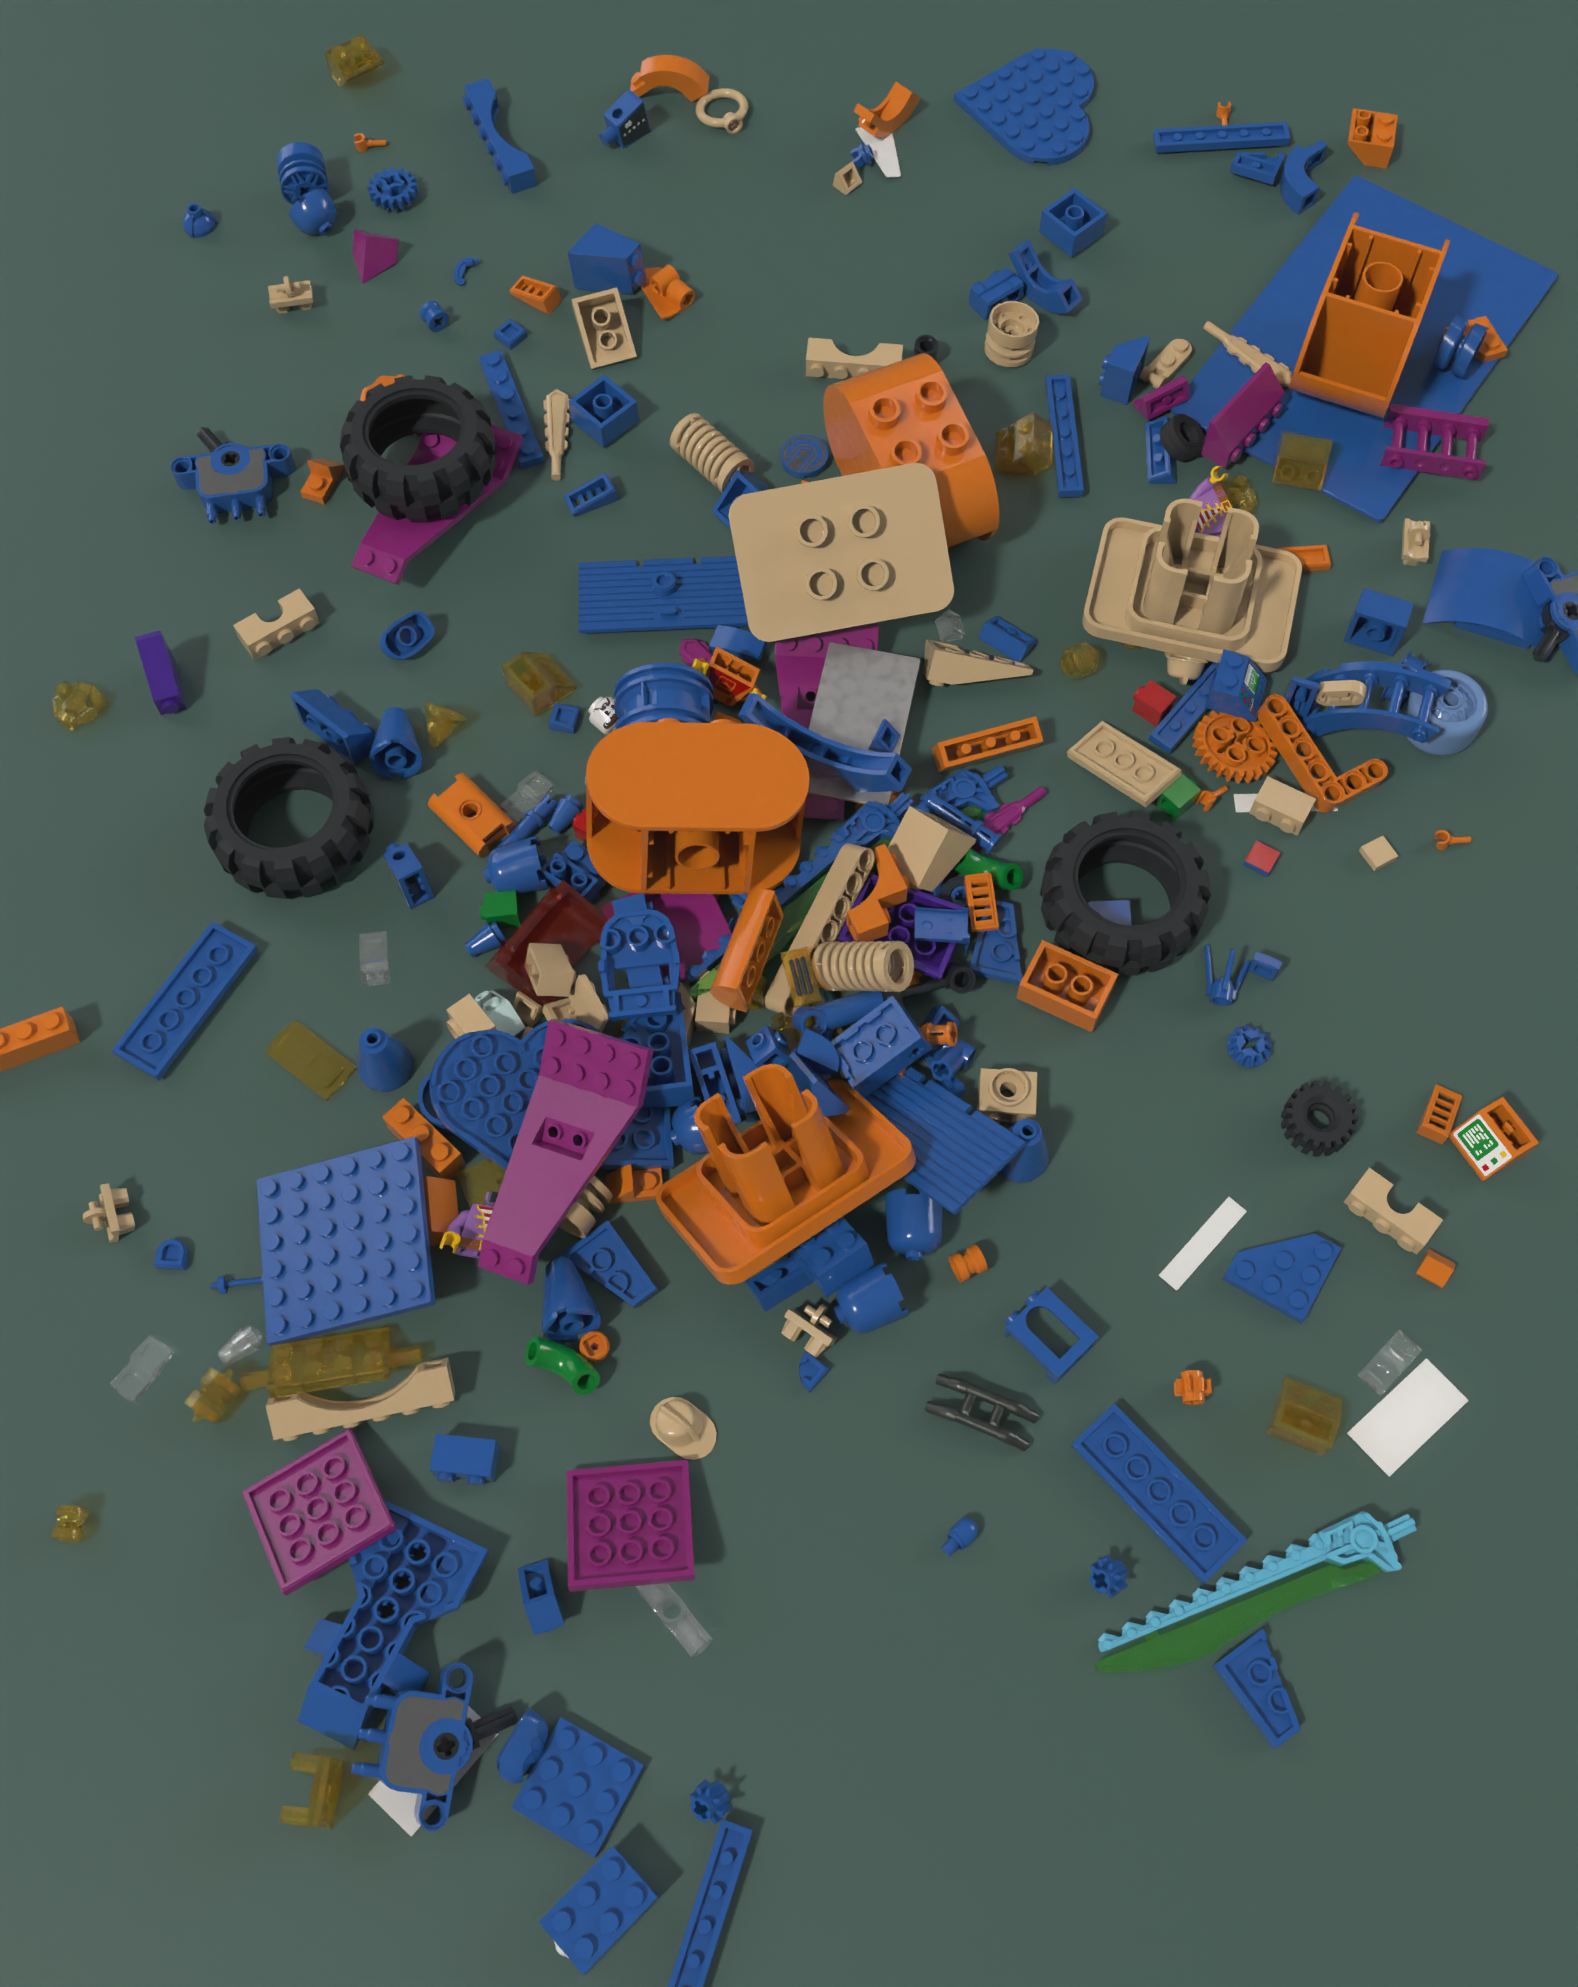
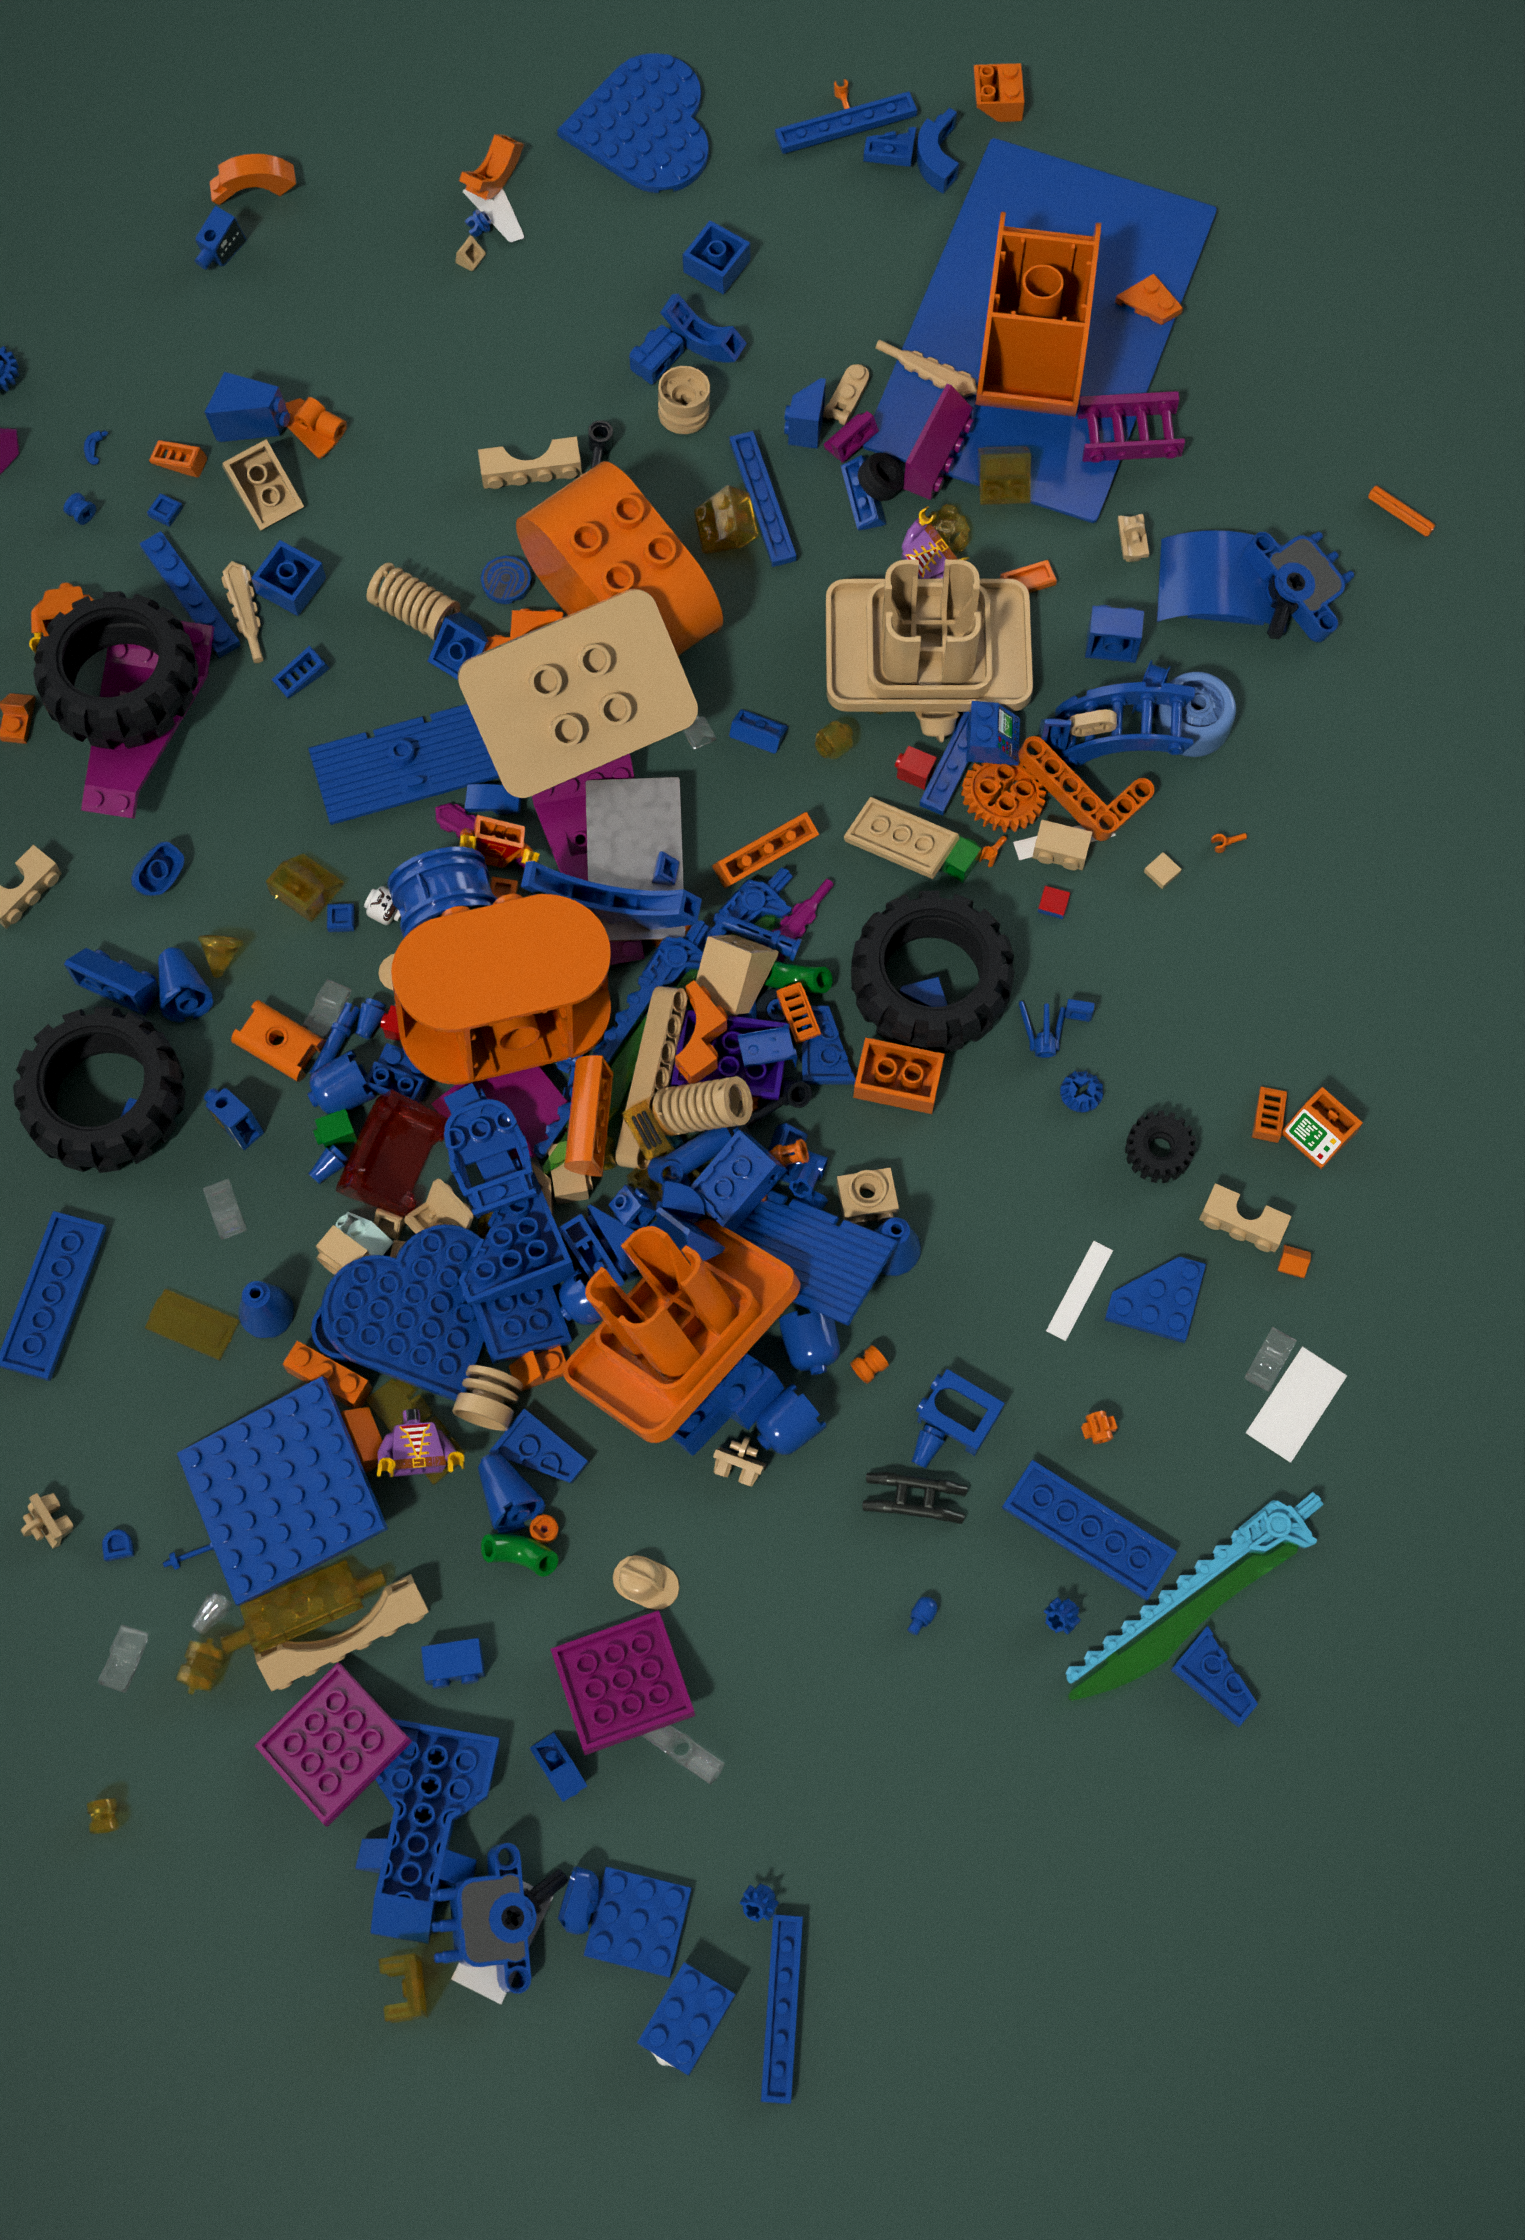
camera: 15 degrees left, 5 degrees up
(514, 164) = (113, 314): blue arch -> none
(549, 970) = (402, 1181): tan brick -> none
(583, 1088) = (471, 1291): magenta wing -> none
(730, 121) = (329, 211): tan piece -> none
(811, 1371) = (750, 1500): blue tile -> none
(953, 666) = (713, 774): tan wedge -> none
(1008, 1360) = (927, 1445): none -> blue cone
(1305, 1417) = (1205, 1428): clear yellow slope -> none
(1459, 346) = (1135, 318): blue wheel -> none

